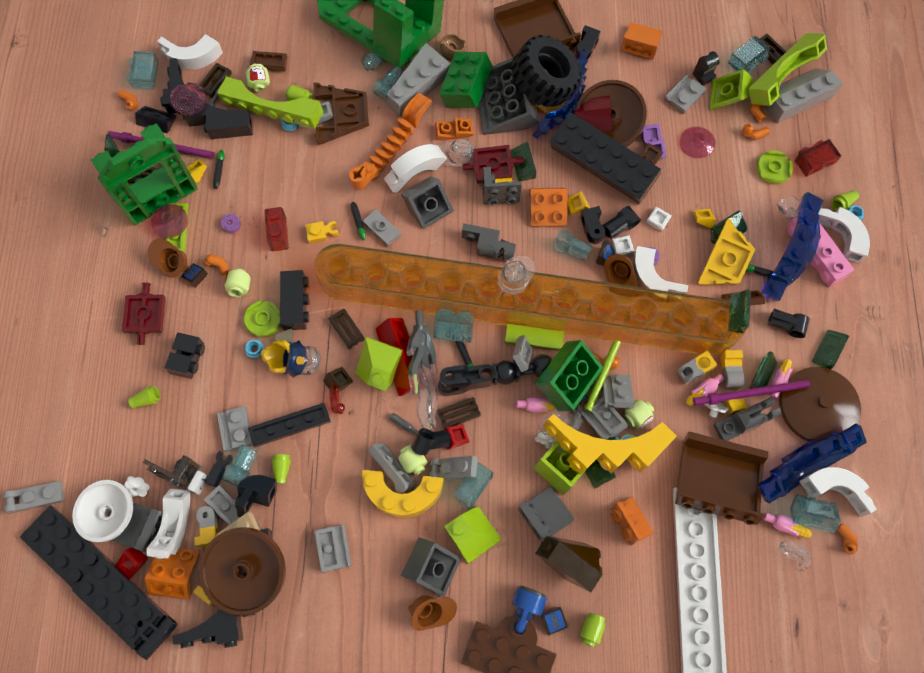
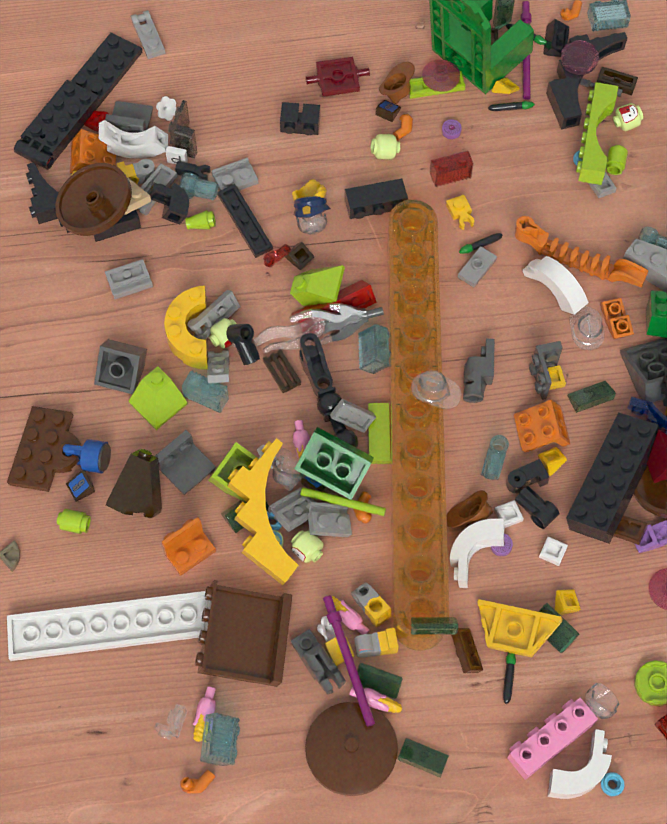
camera: 80 degrees right, 5 degrees down
(92, 511) = (139, 85): white dish -> none
(145, 397) = (254, 98): lime cone -> none
(192, 57) = (639, 56): white arch -> none
(250, 345) = (319, 171): medium azure plate -> none
(262, 319) = (351, 175): lime tile -> none
(270, 60) = (654, 124): reddish brown plate -> none
(287, 335) = (334, 200): dark tan tile -> none
(349, 111) = (608, 211): reddish brown wing -> none
(354, 341) = (348, 268): dark brown tile -> none
(404, 424) = (262, 321): dark grey piece -> none
(427, 201) = (516, 303): dark grey slope -> none
(431, 612) = (76, 371): dark orange piece -> none
(457, 436) = (256, 372): red slope -> none
(464, 353) = (345, 368): black piece -> none
(497, 158) = (581, 363): dark red plate -> none
(605, 251) = (495, 493): dark brown slope -> none
(793, 323) = (446, 710): black piece -> none
(799, 250) = (543, 703): clear blue piece -> none
(809, 459) = (276, 729): clear blue piece -> none
(841, 481) = (261, 752): white arch -> none
(844, 200) = (628, 770): lime cone -> none

